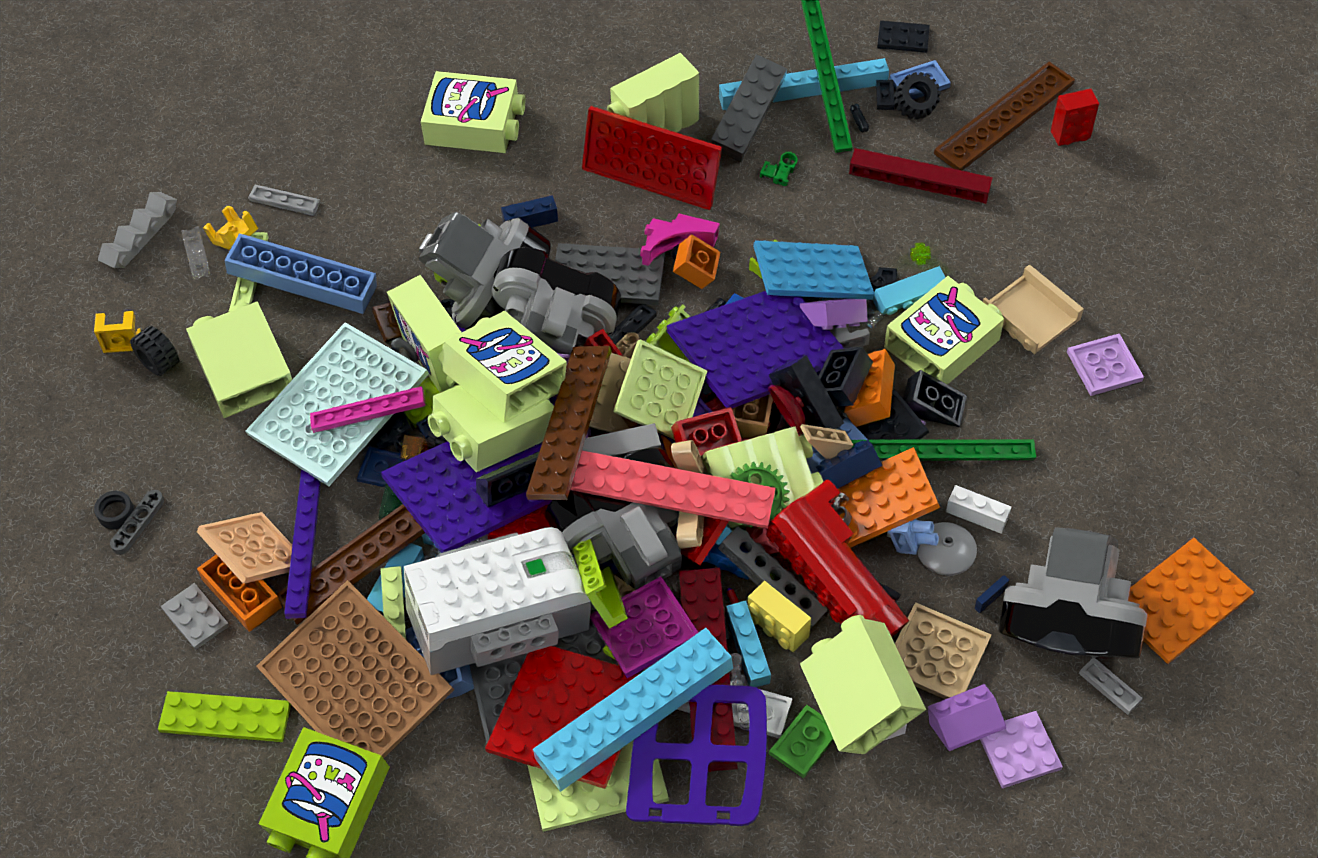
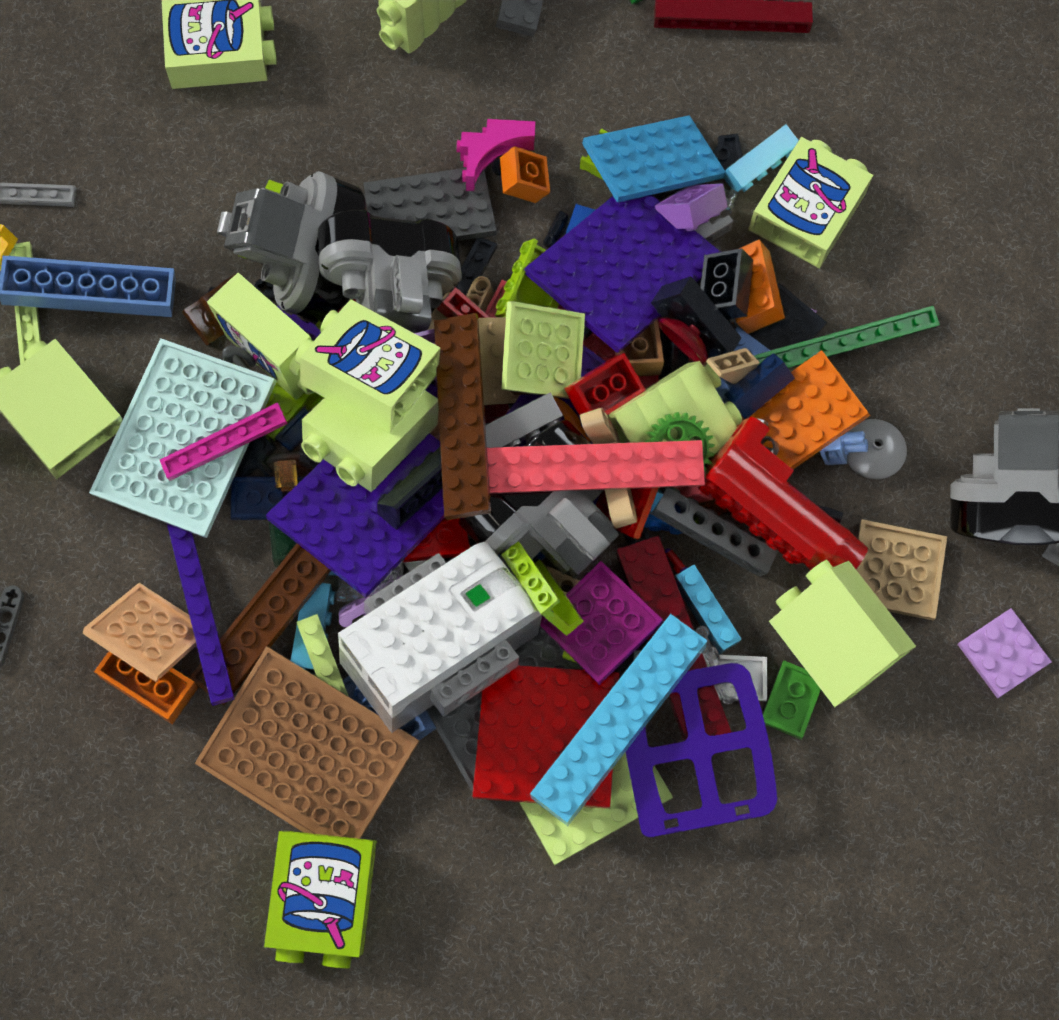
camera: 20 degrees left, 15 degrees up
(195, 616) = (106, 721): light grey plate -> none
(224, 716) = (178, 827): lime plate -> none
(532, 212) = (321, 153): dark blue brick -> none
(651, 157) = (439, 58): red plate -> none
(779, 617) = (730, 572): light yellow brick -> none
(782, 171) = (581, 40): green piece -> none
(920, 253) = (758, 110): clear neon green gear -> none
(934, 399) = (818, 281): black slope -> none
(966, 717) = (948, 635): medium lavender slope -> none
(978, 509) = (898, 398): white brick -> none
(991, 594) = (935, 490): dark blue tile -> none
(1035, 310) = (894, 151): tan panel -> none
(1105, 364) = (981, 200): lavender plate -> none

